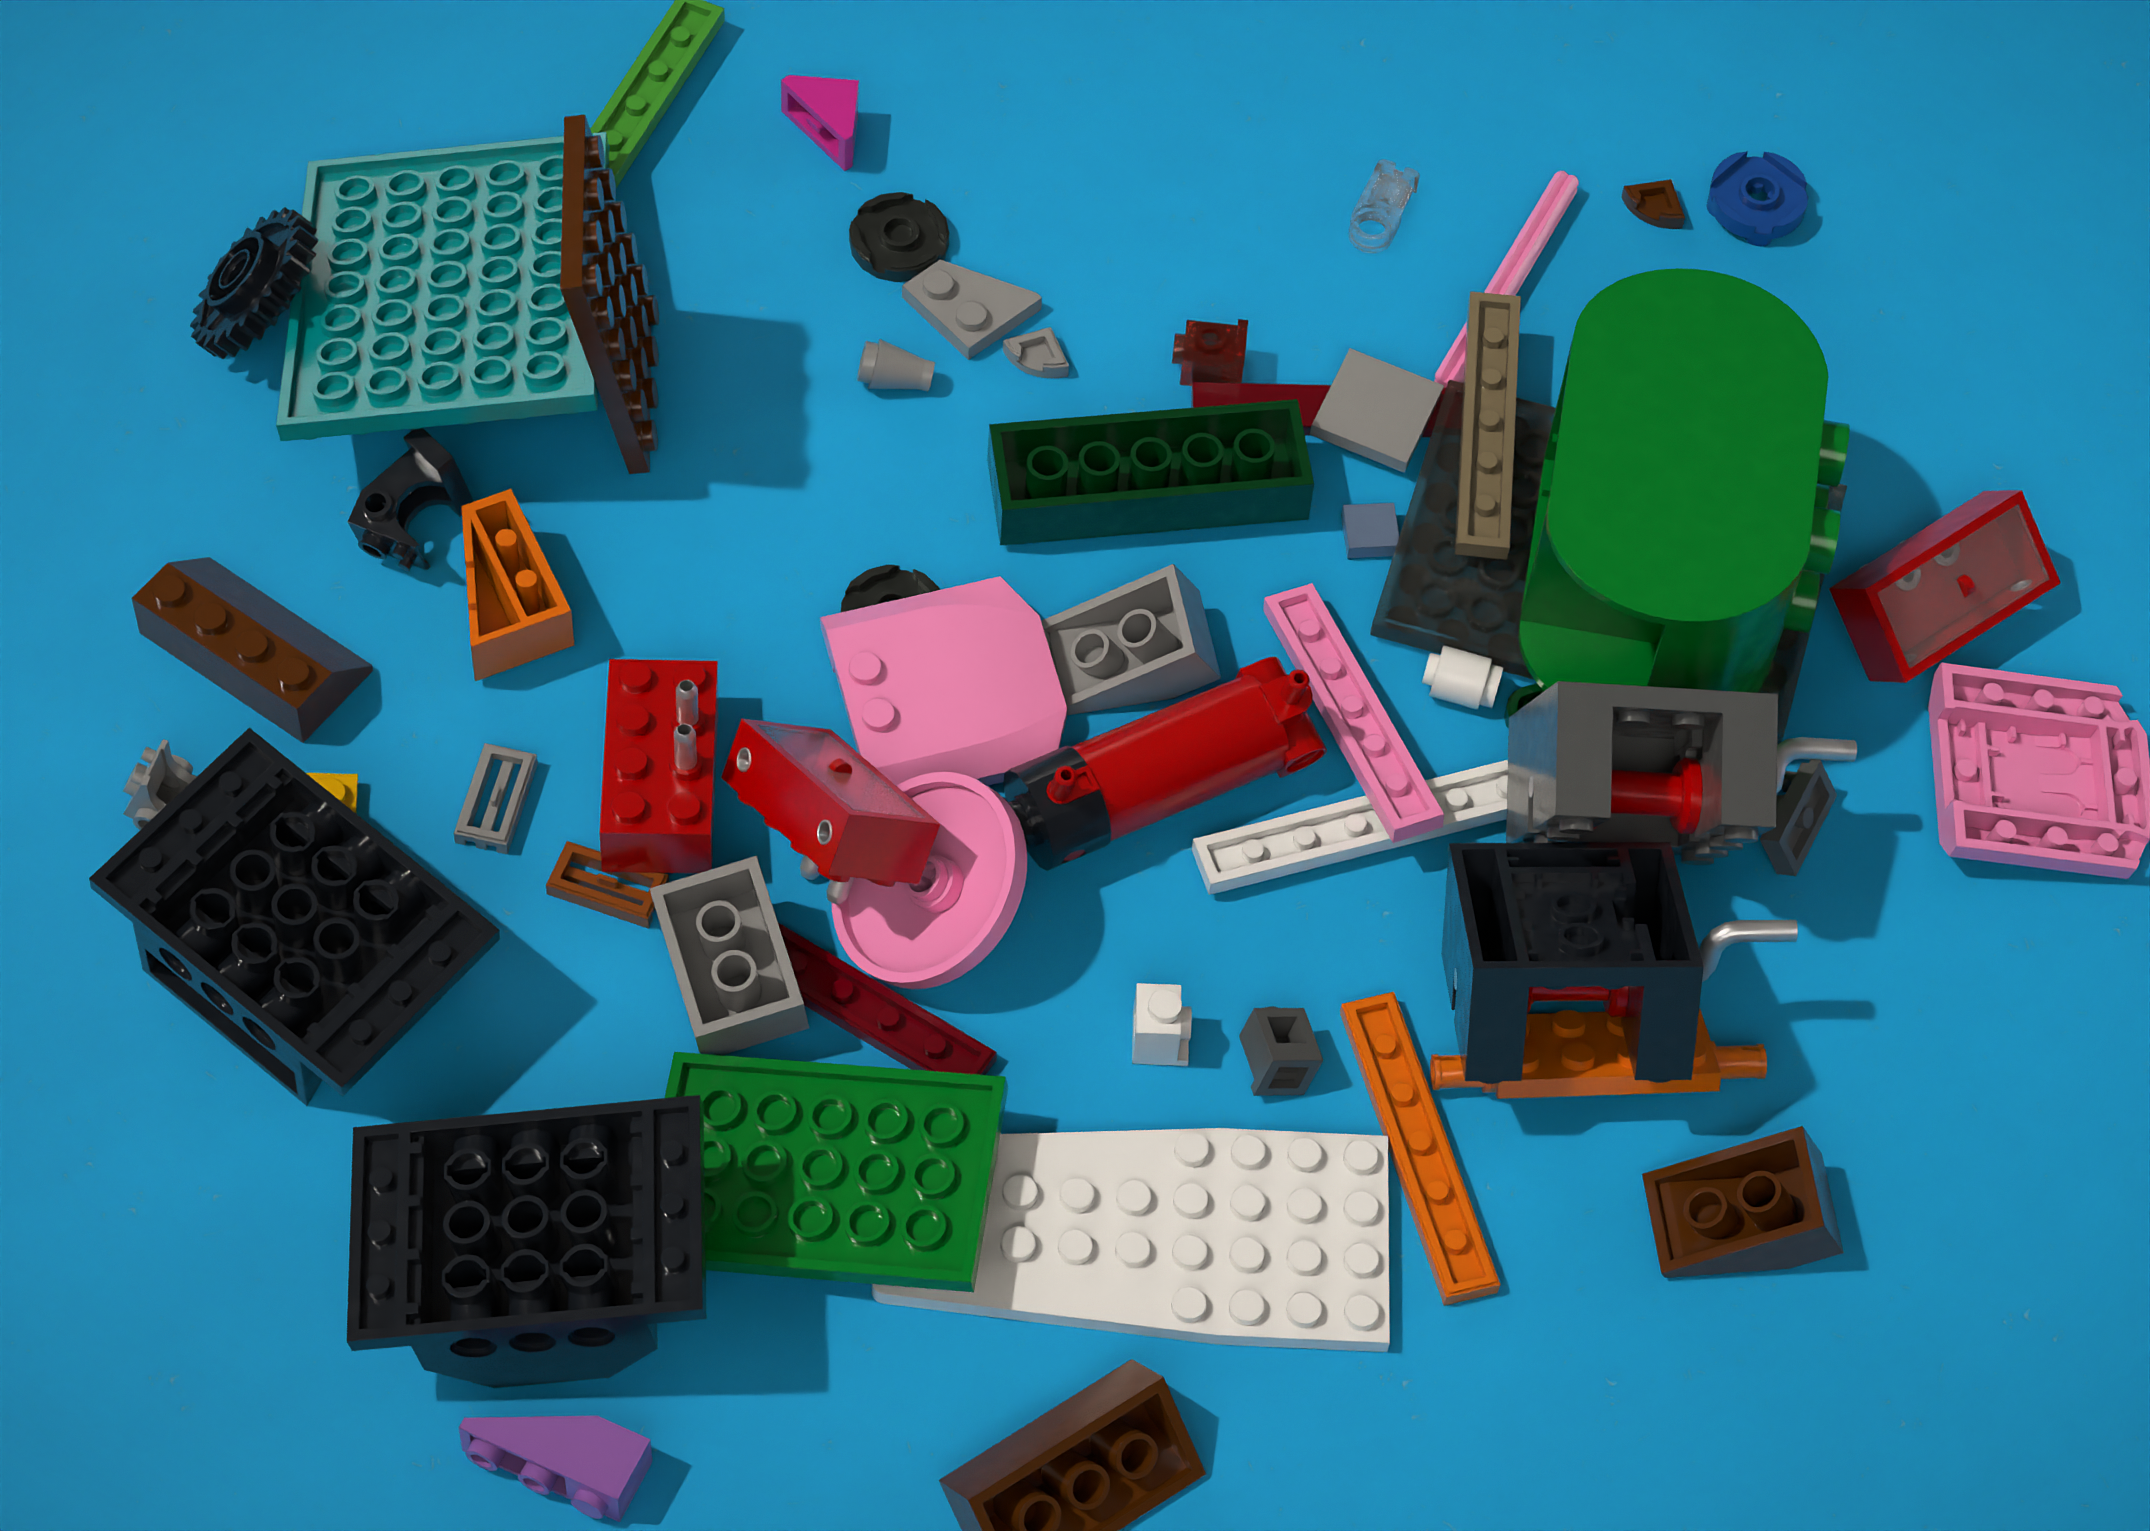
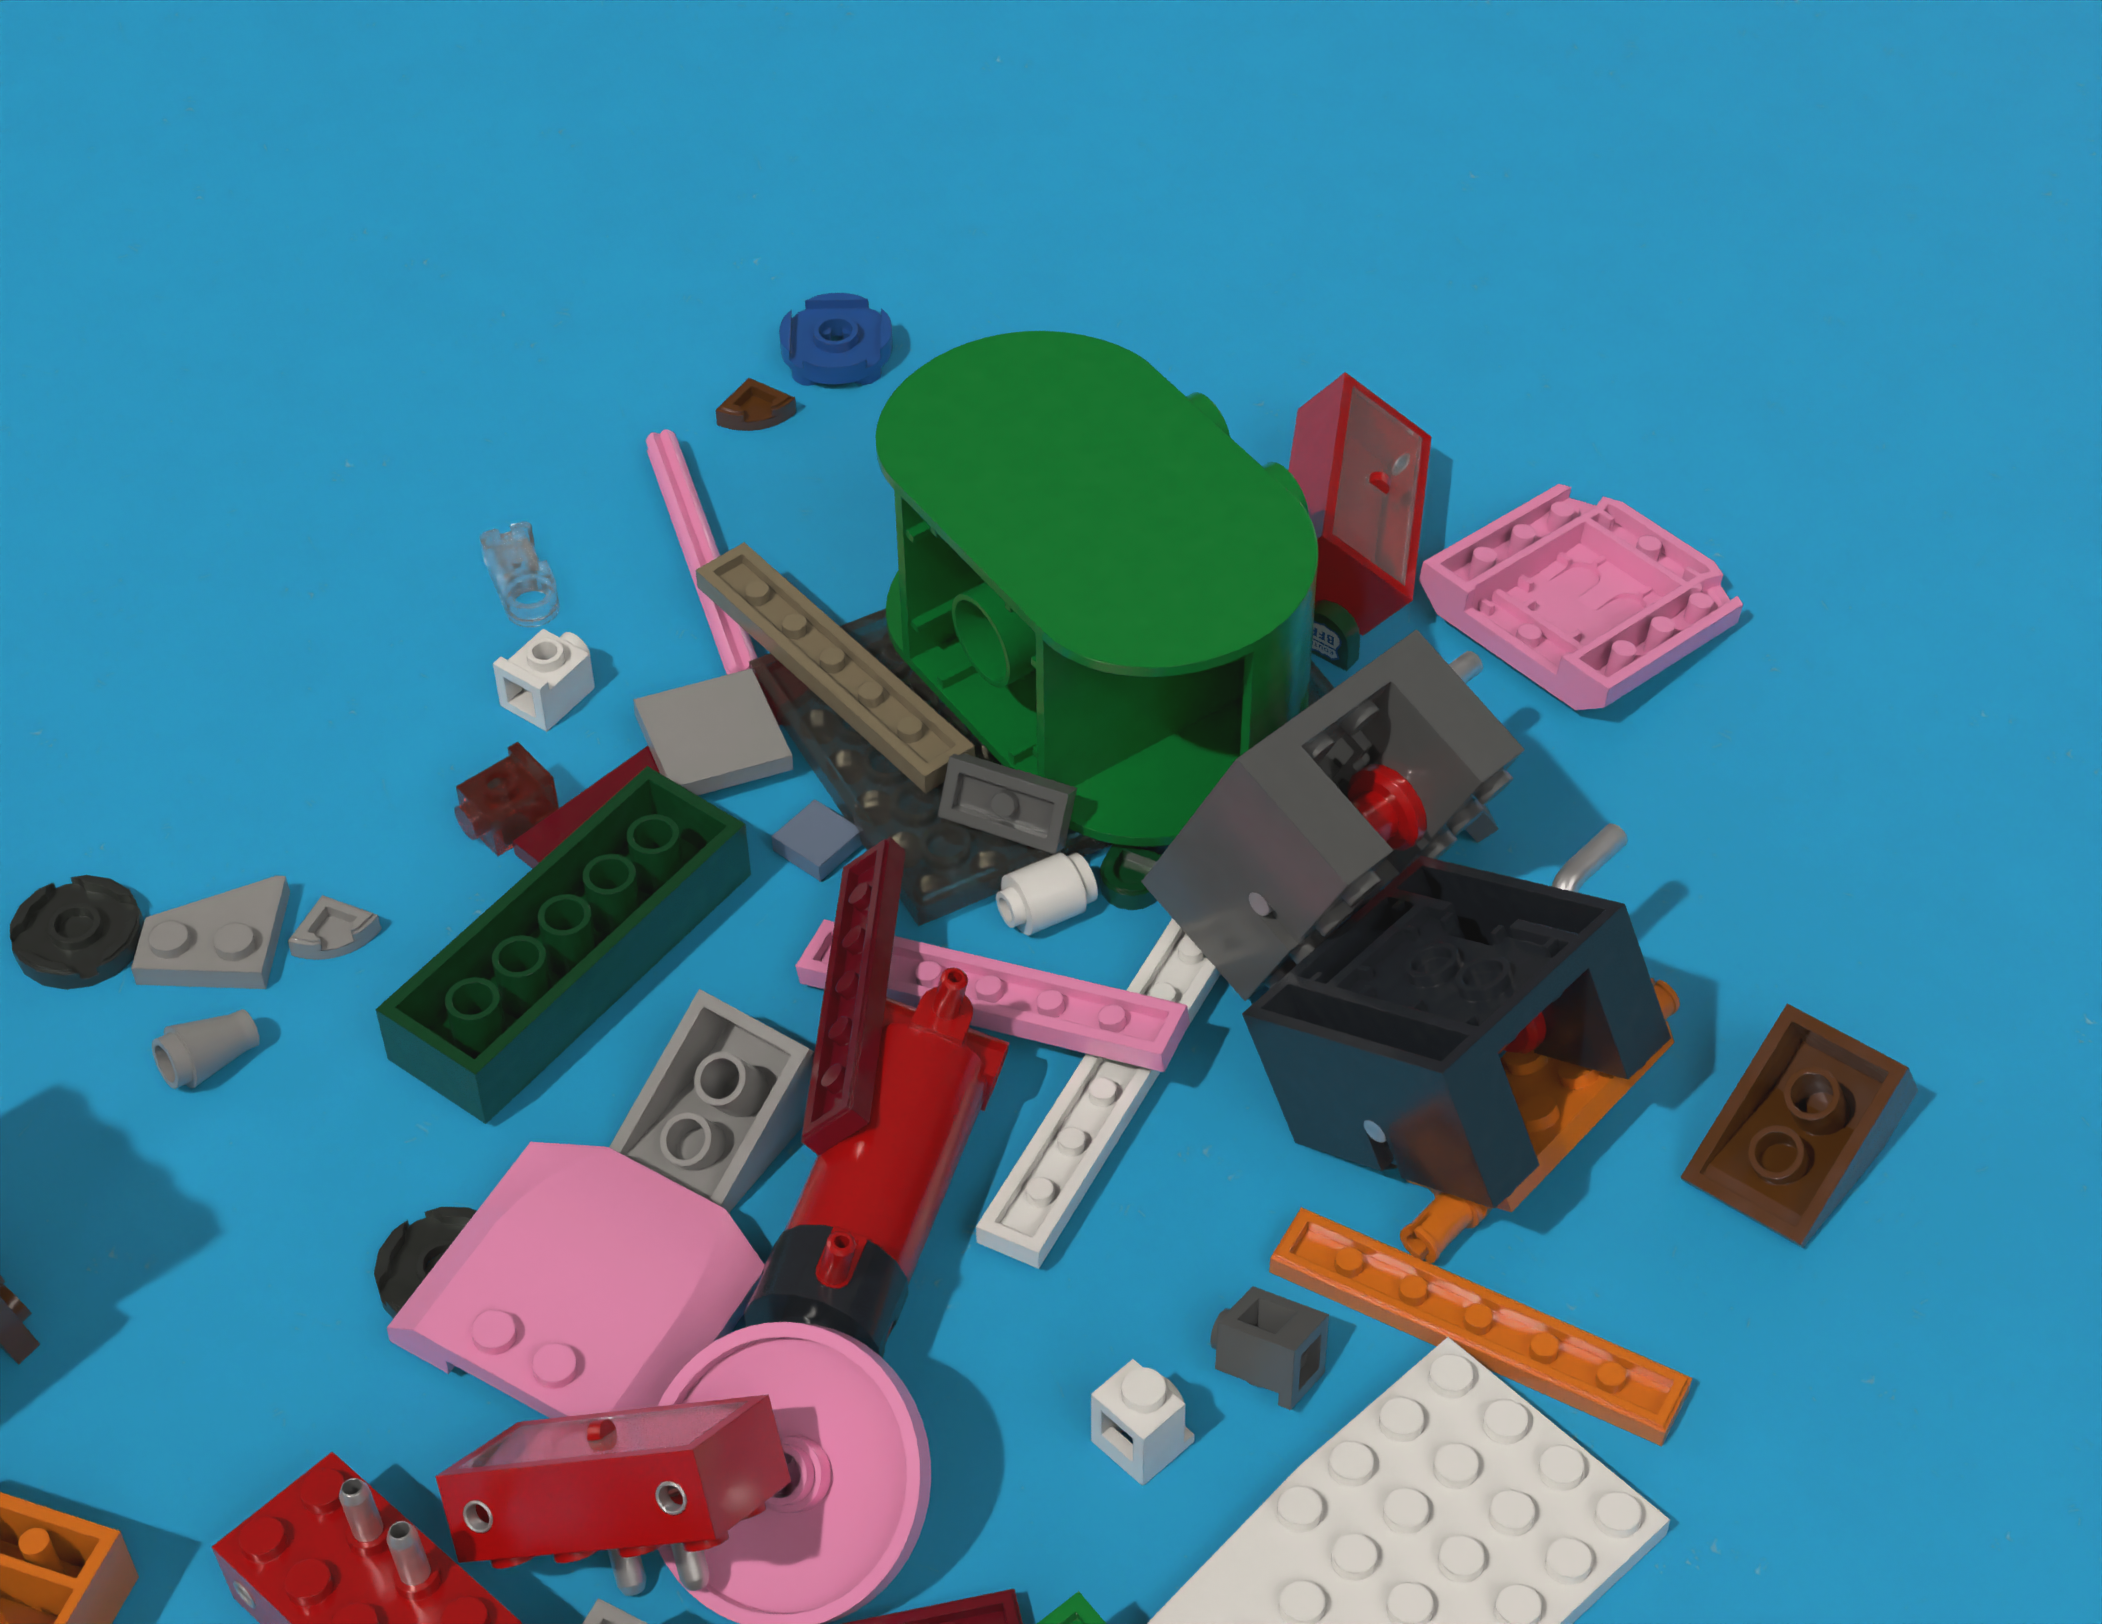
camera: 40 degrees left, 10 degrees down
(1260, 641) = (854, 997): none -> dark red tile
(1320, 290) = (545, 678): none -> white brick
(1489, 600) = (1007, 802): none -> dark grey plate
(1839, 662) = (1335, 634): none -> dark green tile

